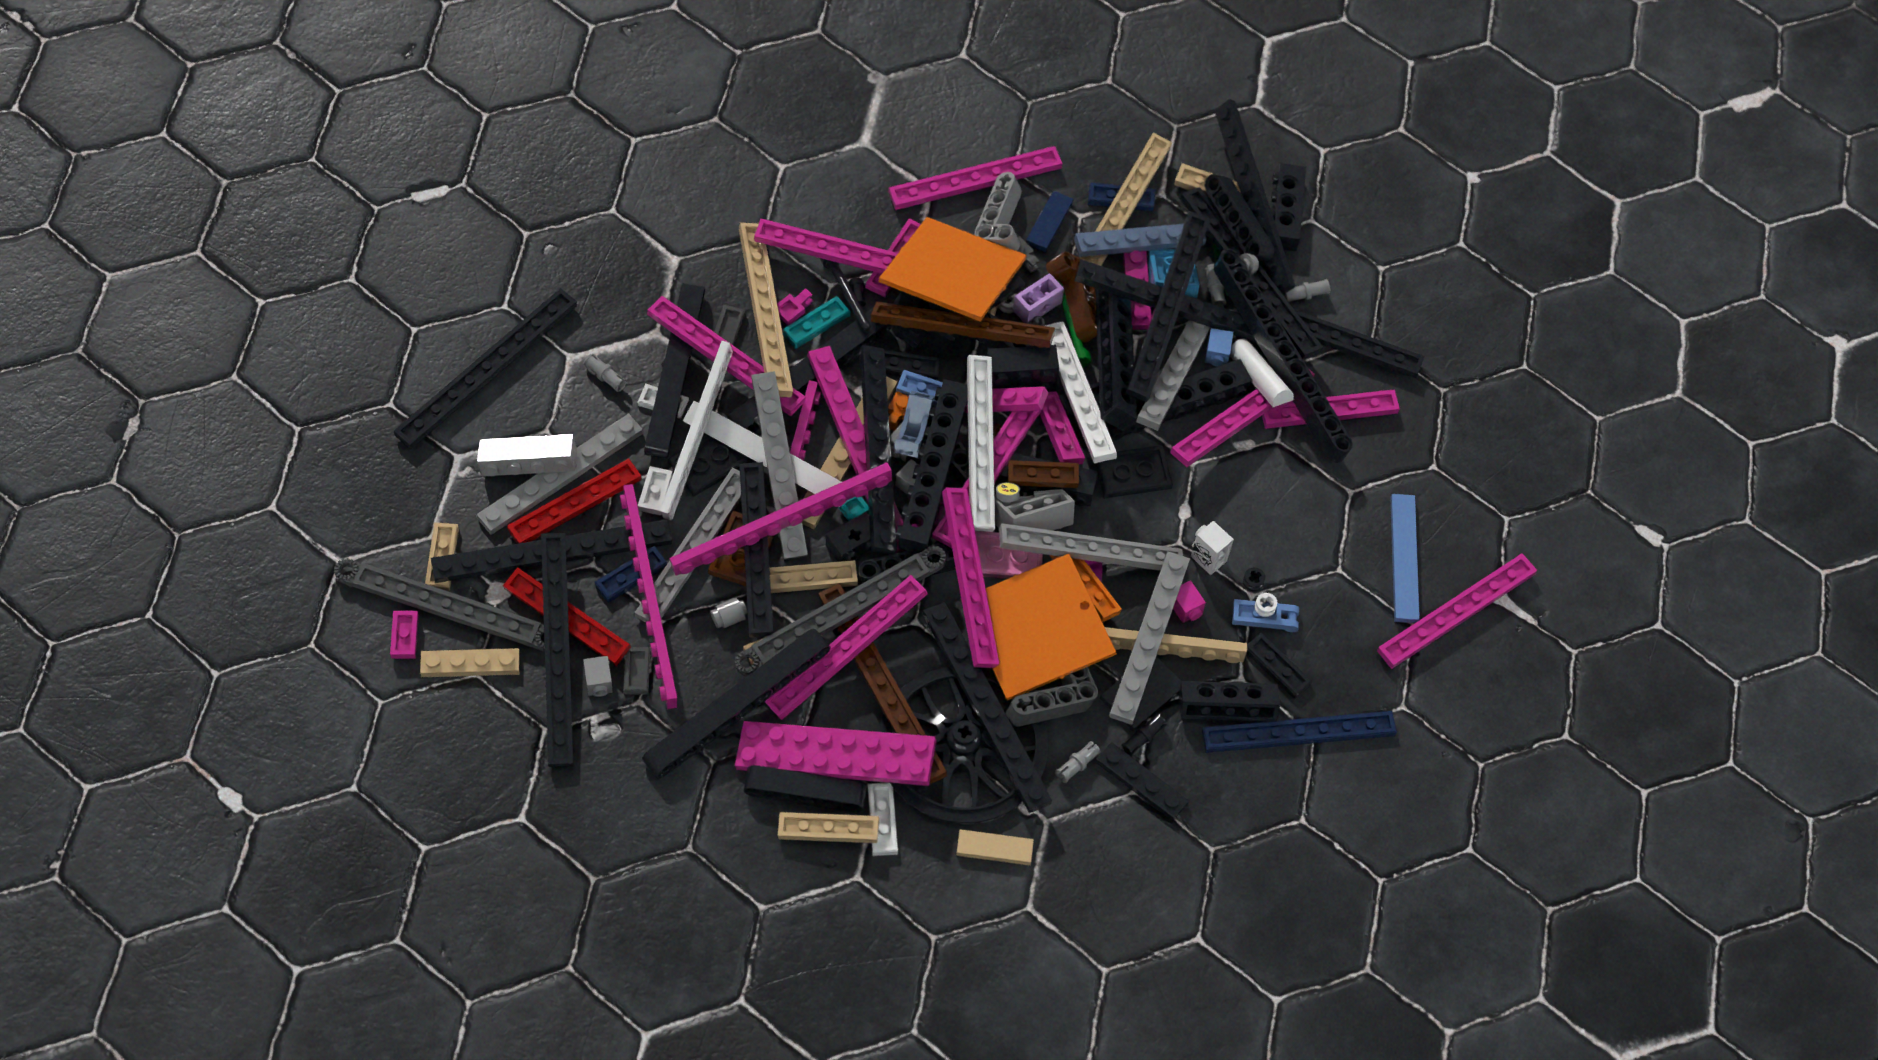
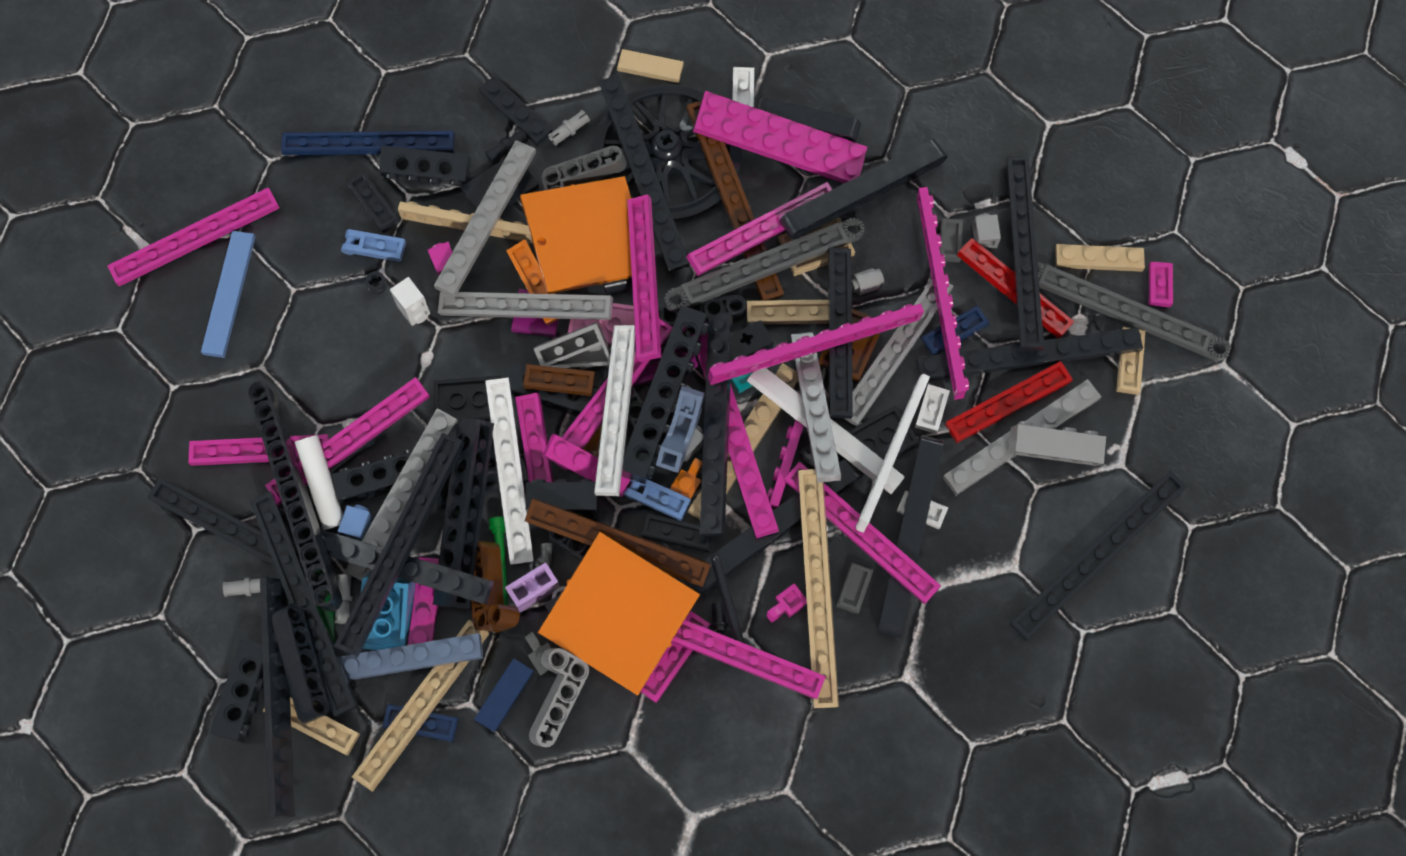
camera: 170 degrees left, 10 degrees up
(605, 372) = (980, 540): light grey pin -> none
(816, 322) = (764, 588): teal tile -> none
(828, 827) = (790, 85): tan plate -> none
(973, 178) = (576, 754): dark pink plate -> none
(1007, 492) = (596, 361): tile -> none
(1250, 262) = (304, 598): light grey plate -> none
(1269, 610) = (370, 252): white bush -> none

